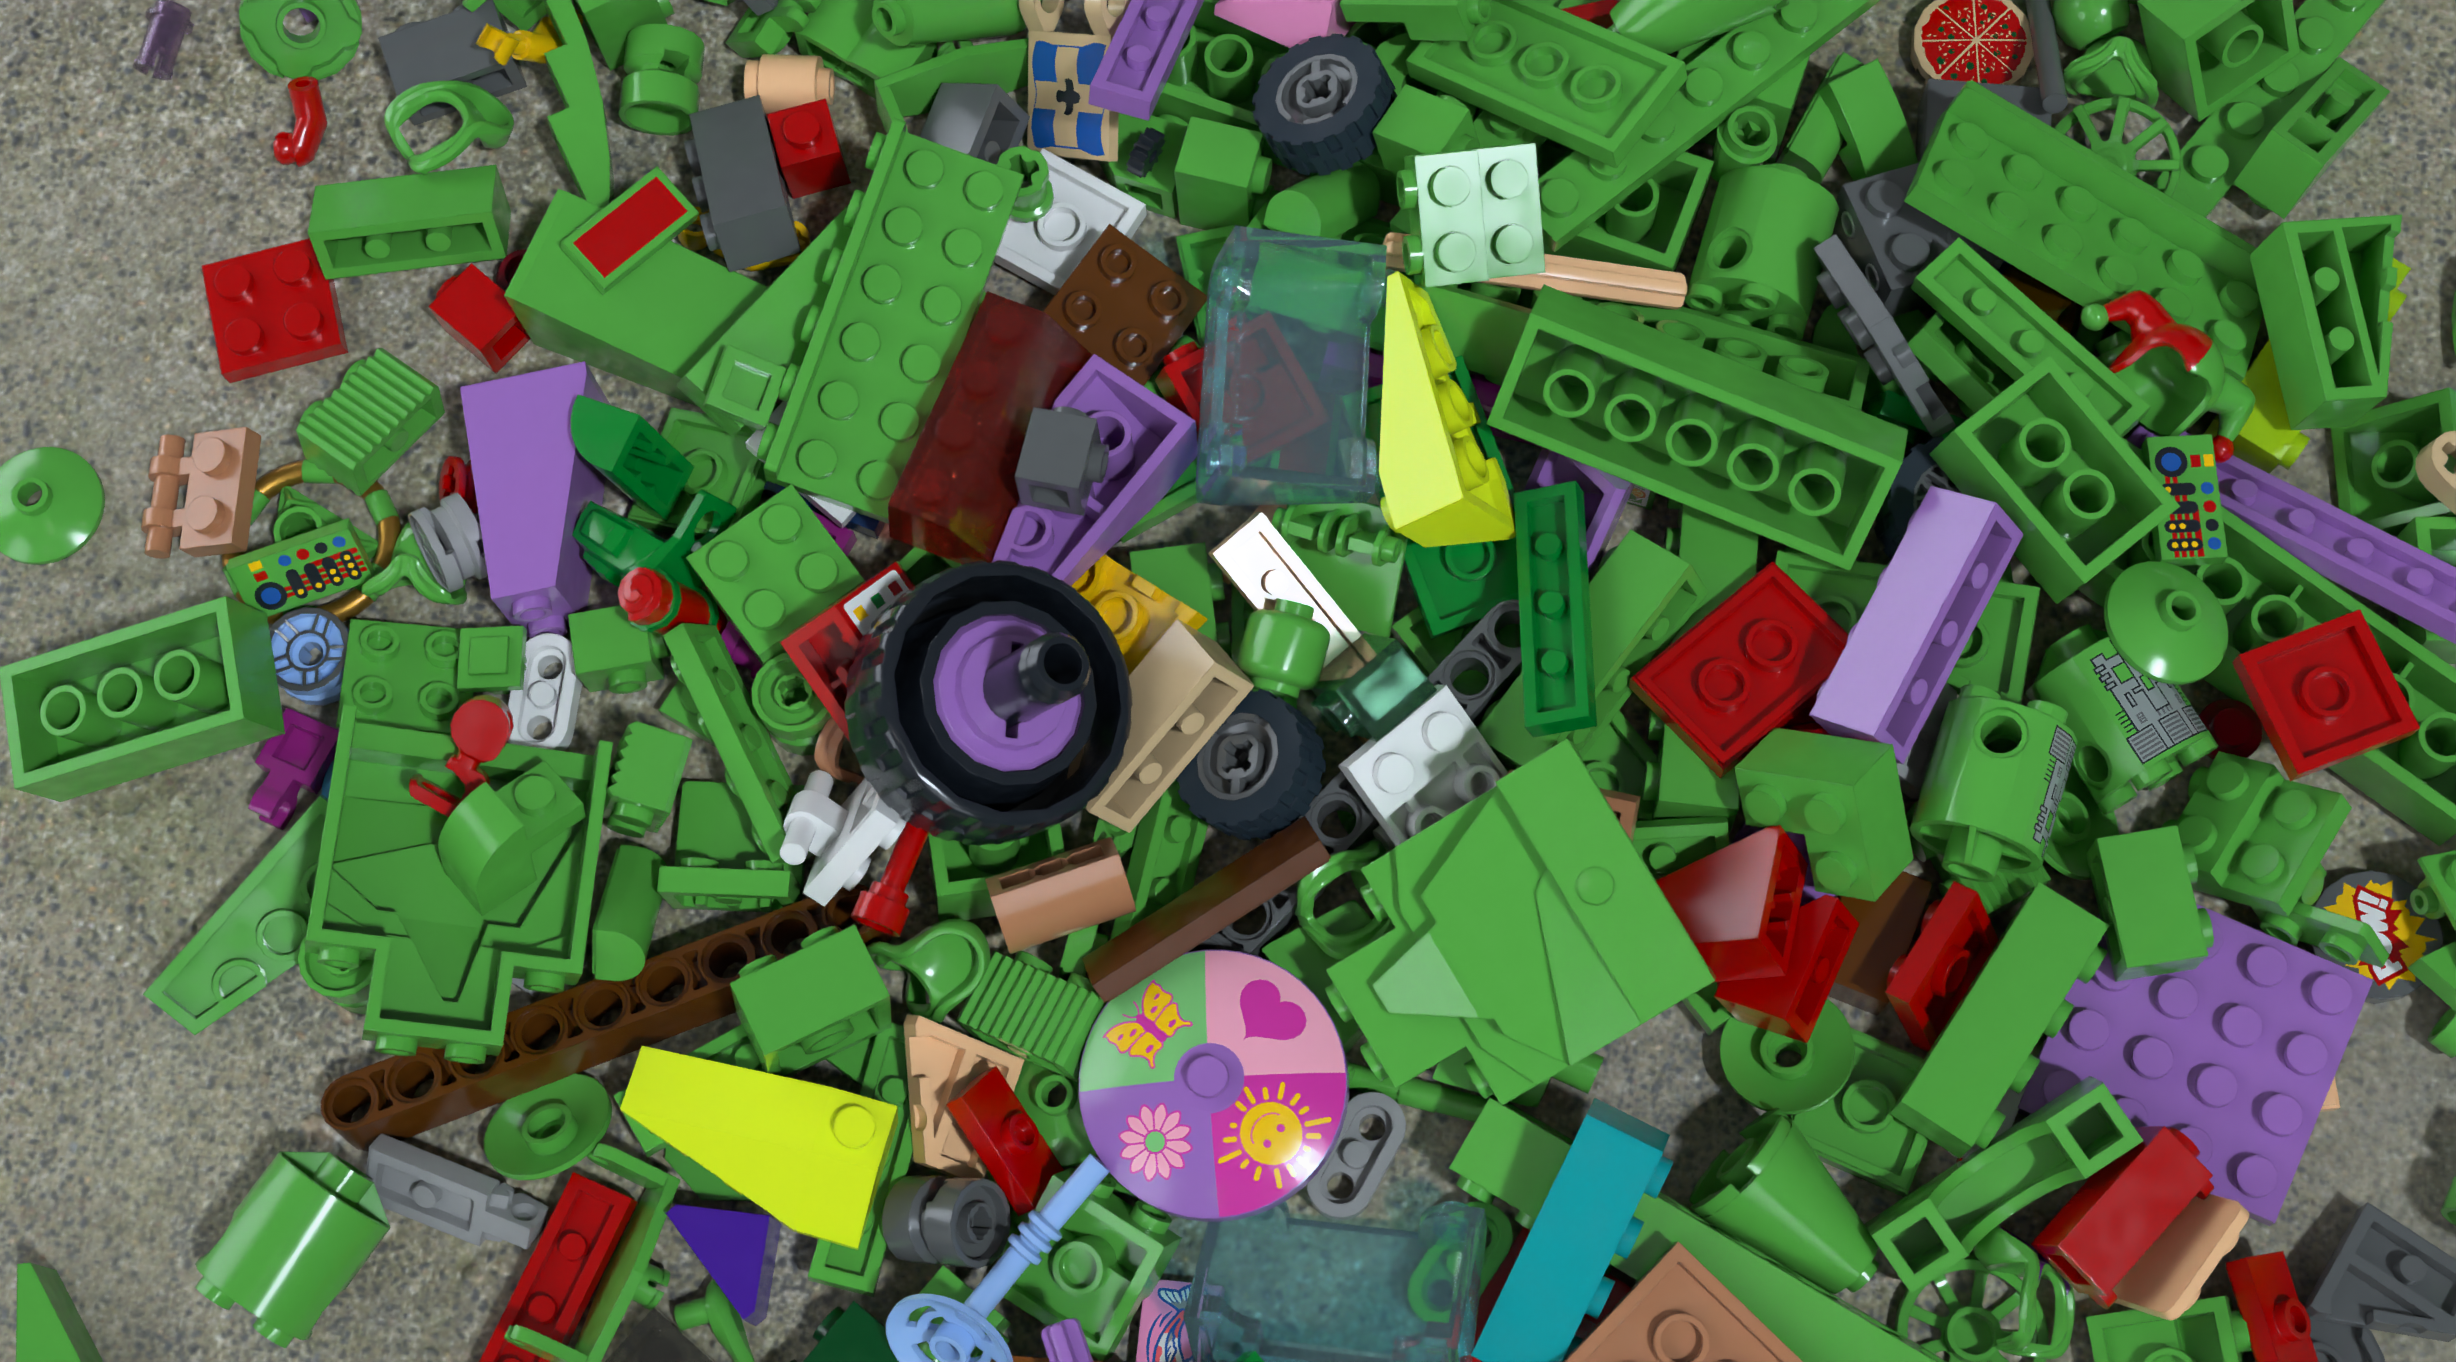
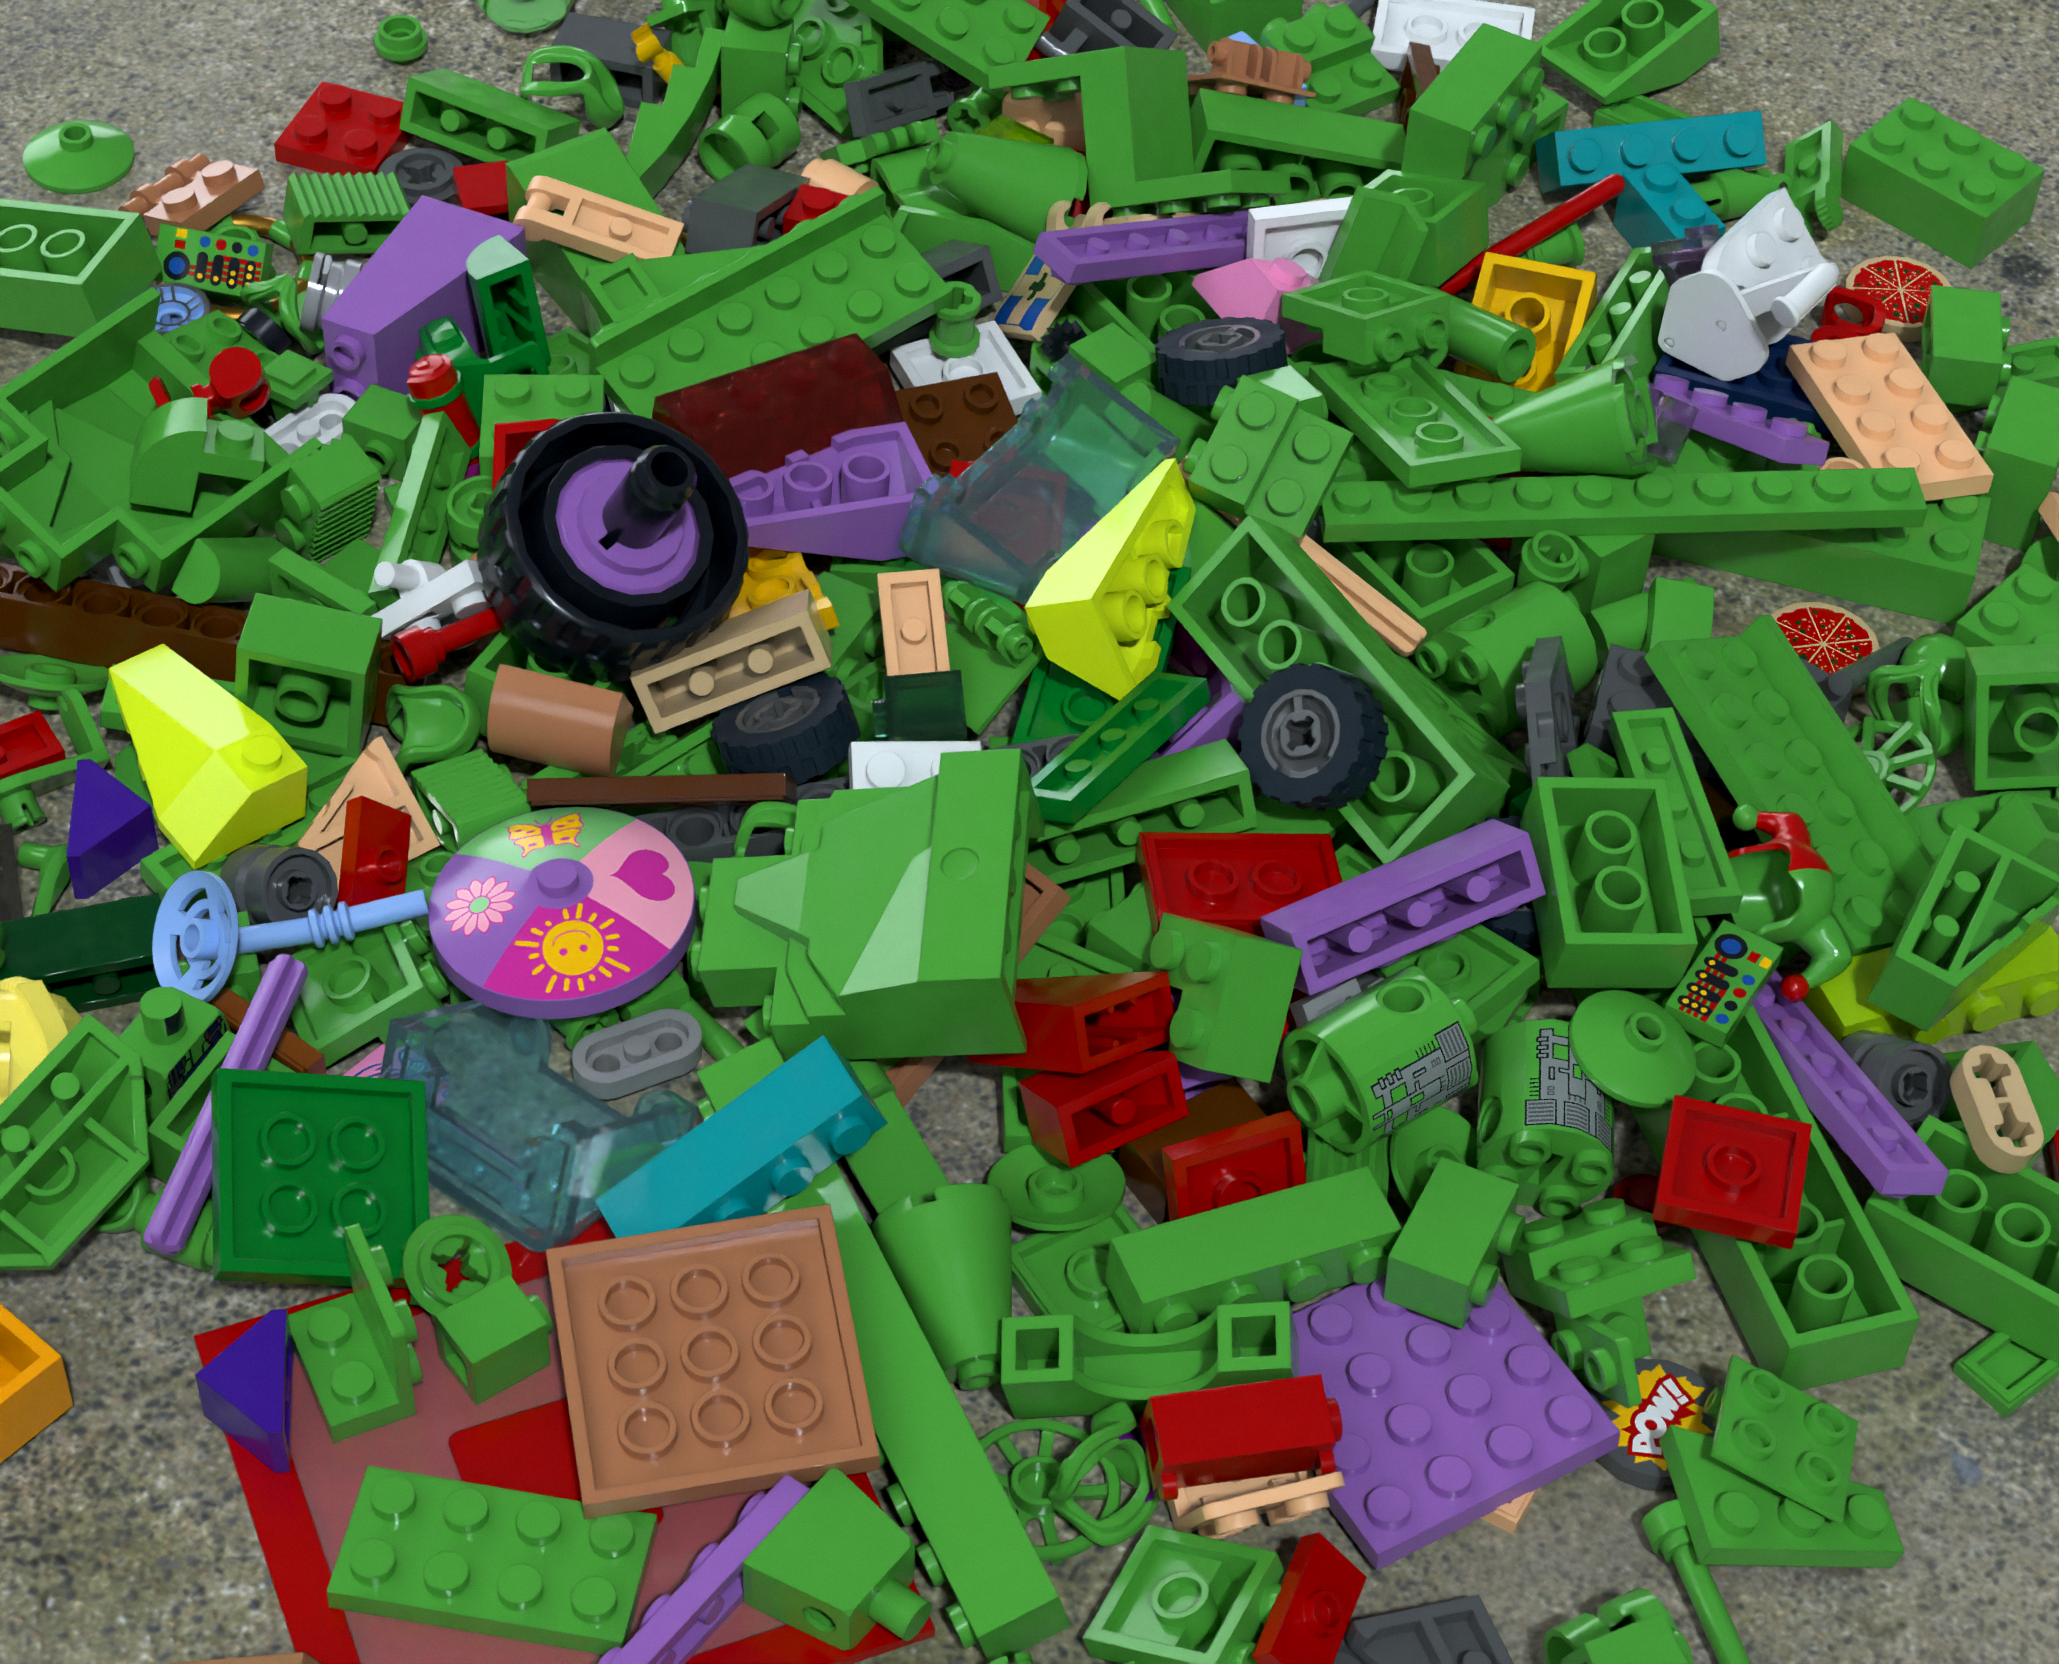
camera: 25 degrees right, 25 degrees down
(221, 151) = (400, 39): none -> bright green plate
(309, 127) = (474, 49): red arm -> none
(373, 305) = (421, 166): none -> dark grey gear
(406, 610) = (264, 330): none -> black tile
(629, 230) = (635, 174): tile -> none
(646, 309) = (595, 222): none -> light nougat plate
(1060, 460) = (809, 447): dark grey brick -> none
(1284, 649) = (870, 654): bright green head -> none
(1690, 1131) = (896, 1160): none -> bright green hinge
(1724, 497) = (1313, 737): none -> black wheel
(2359, 482) = (1905, 1071): none -> dark grey wheel

